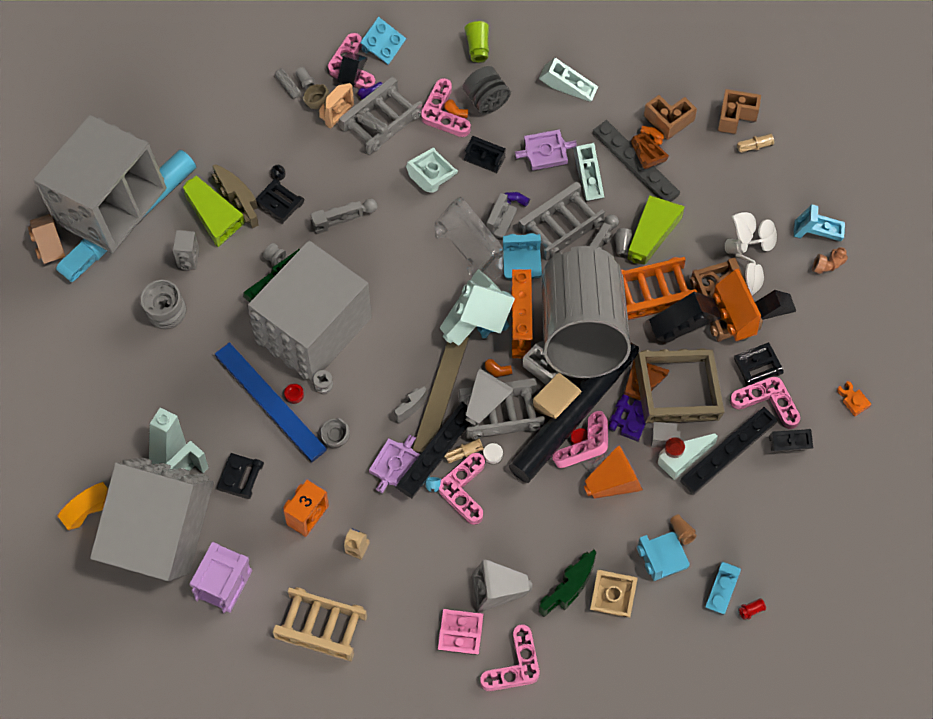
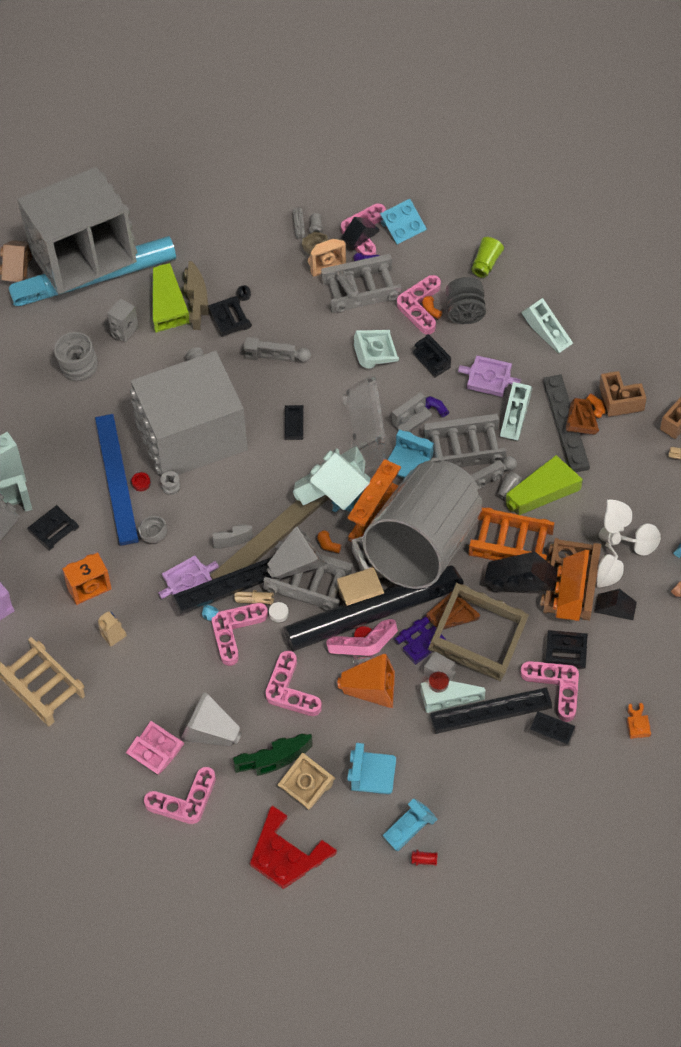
camera: 30 degrees right, 5 degrees down
(398, 272) = (294, 422): none -> black tile
(544, 523) = (285, 693): none -> bright pink beam
(631, 674) = (280, 859): none -> red wing
(684, 532) = (404, 760): medium nougat cone -> none

